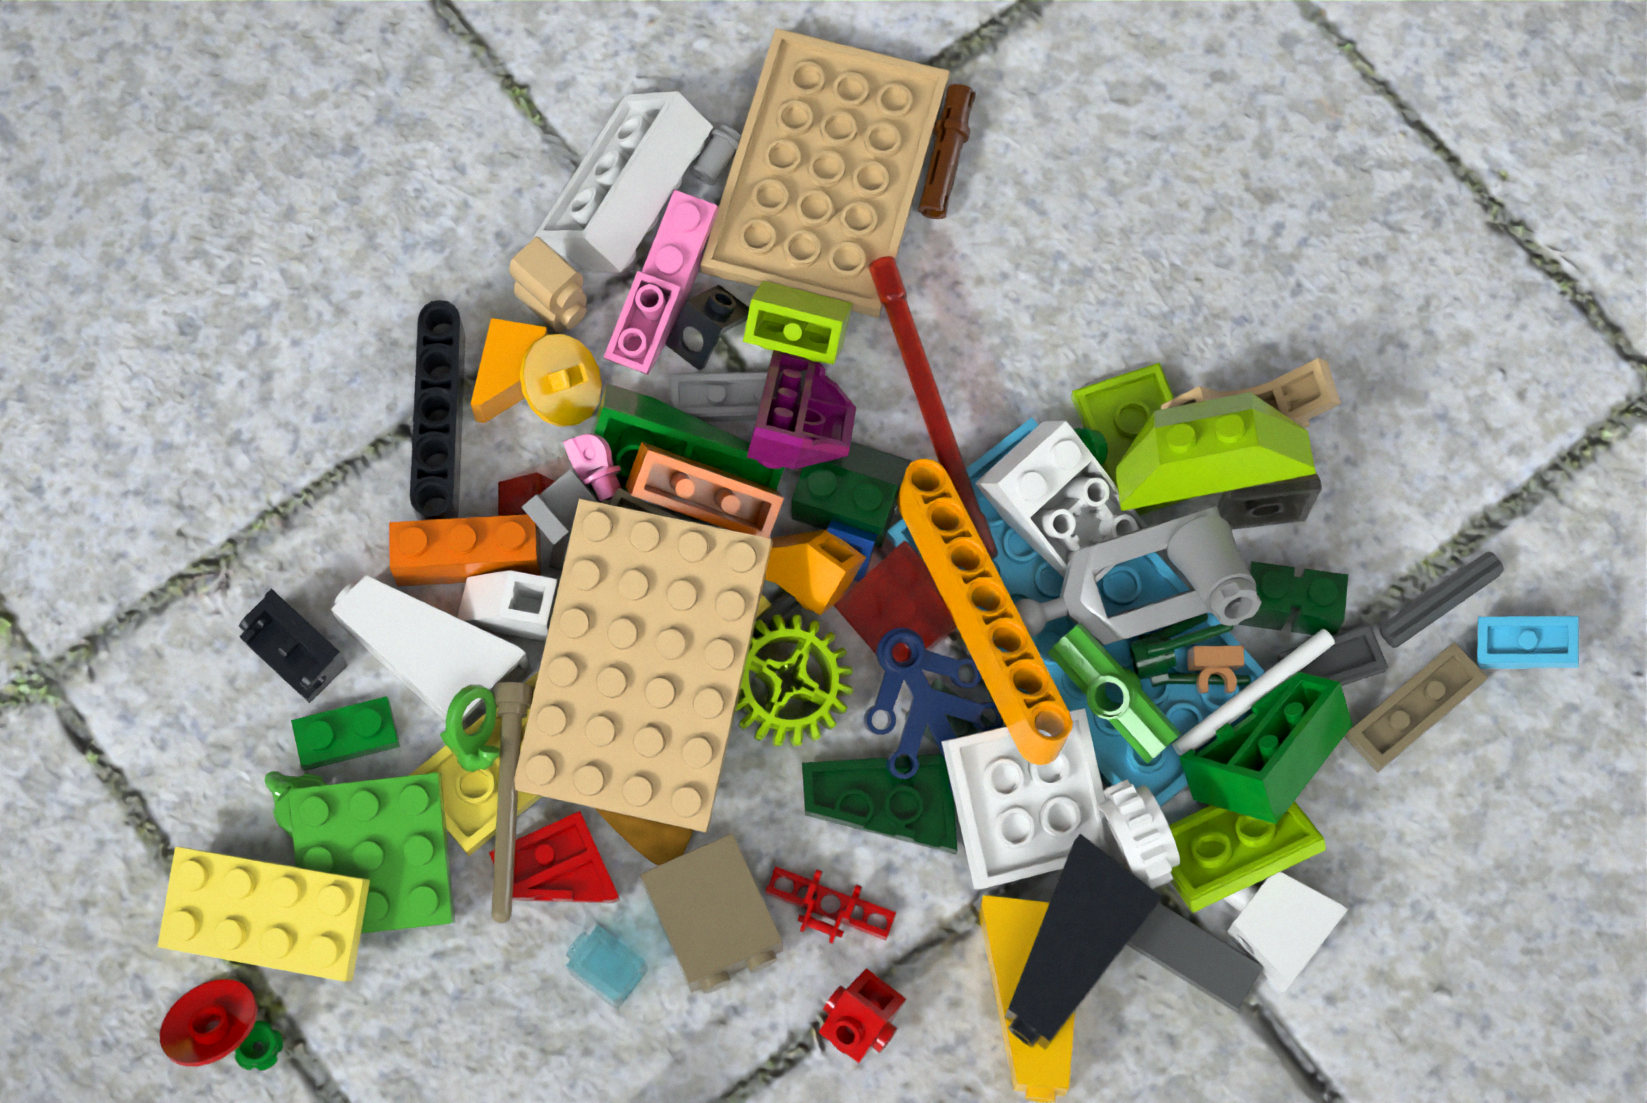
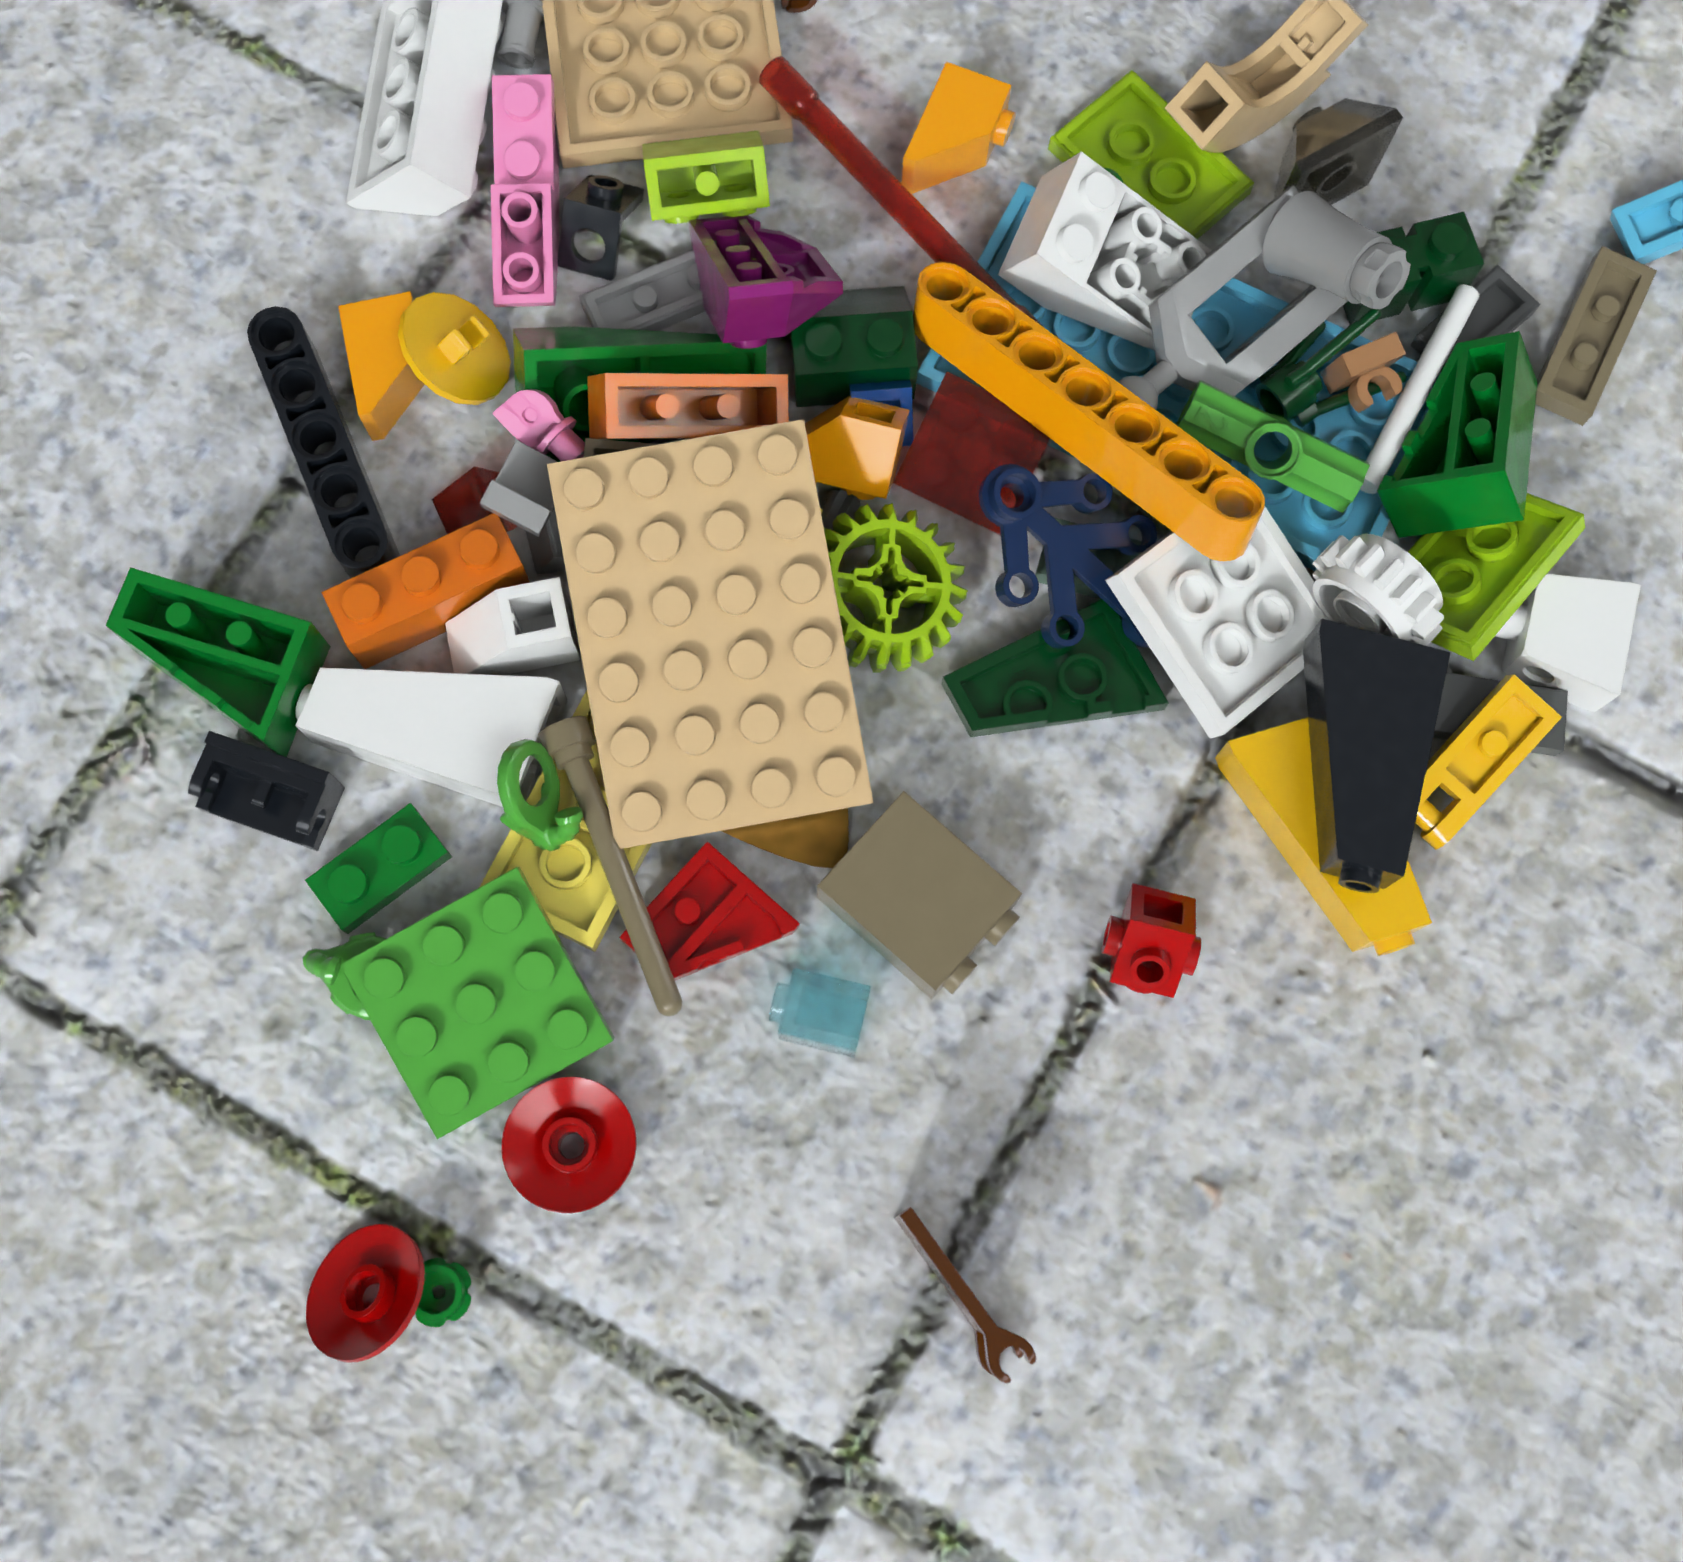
camera: 25 degrees left, 5 degrees up
(264, 913) = (375, 1129): light yellow plate -> none
(306, 537) = (224, 651): none -> green wedge
(387, 957) = (534, 1145): none -> red dish
(548, 285) = (390, 240): tan brick -> none
(814, 906) = (1027, 836): red piece -> none
(1002, 358) = (957, 128): none -> light orange slope
(1164, 987) = (1482, 756): none -> yellow plate
(1211, 450) = (1258, 125): lime wedge -> none
(1441, 599) = (1559, 209): dark grey axle -> none

